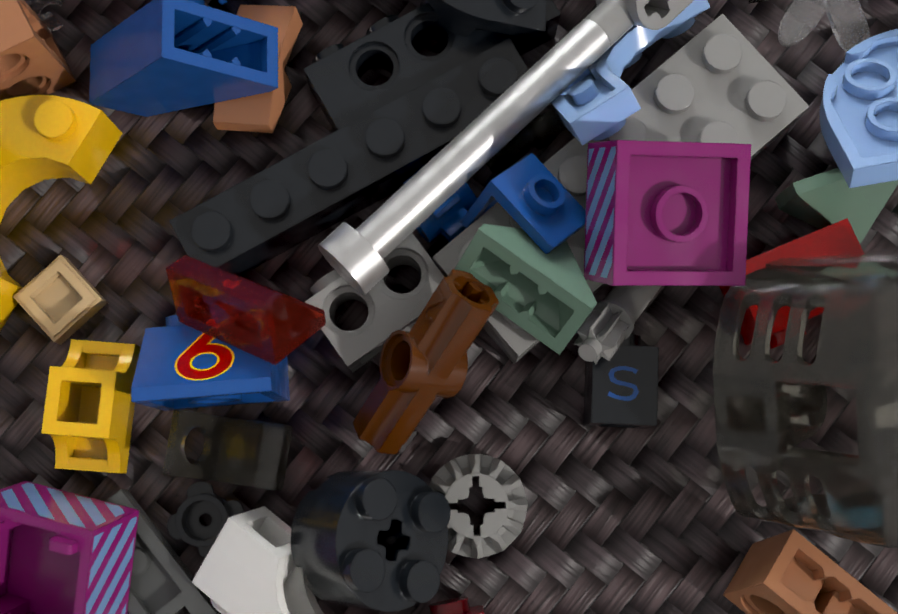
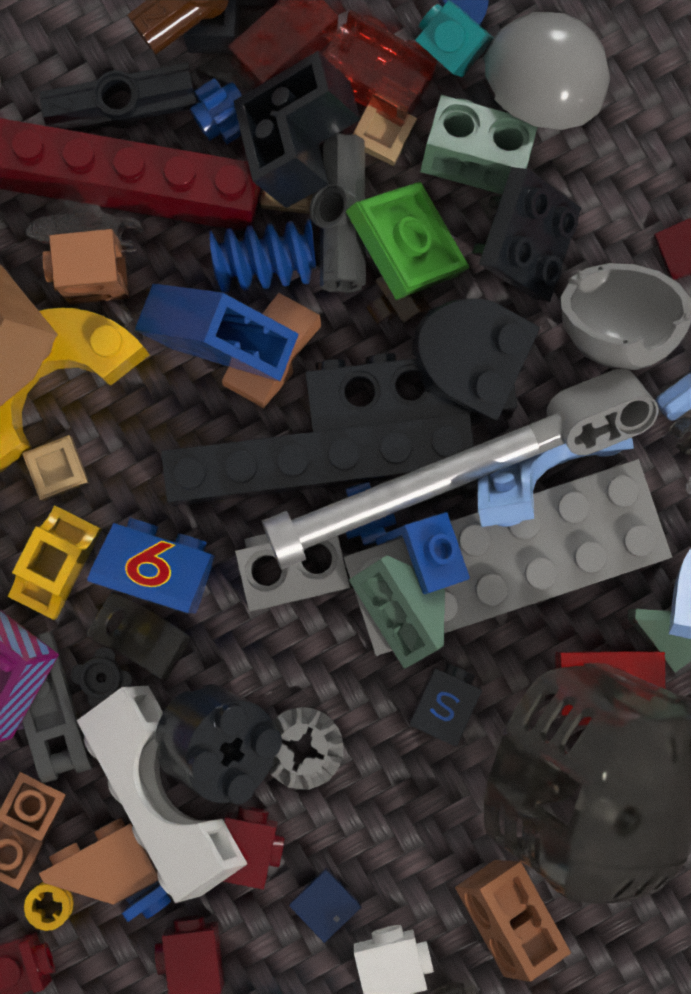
camera: 25 degrees right, 5 degrees up
(241, 310) = (189, 541): clear red panel -> none
(425, 361) = (305, 633): reddish brown piece -> none
(612, 321) = (460, 654): light grey piece -> none
(667, 213) = (520, 602): magenta container -> none

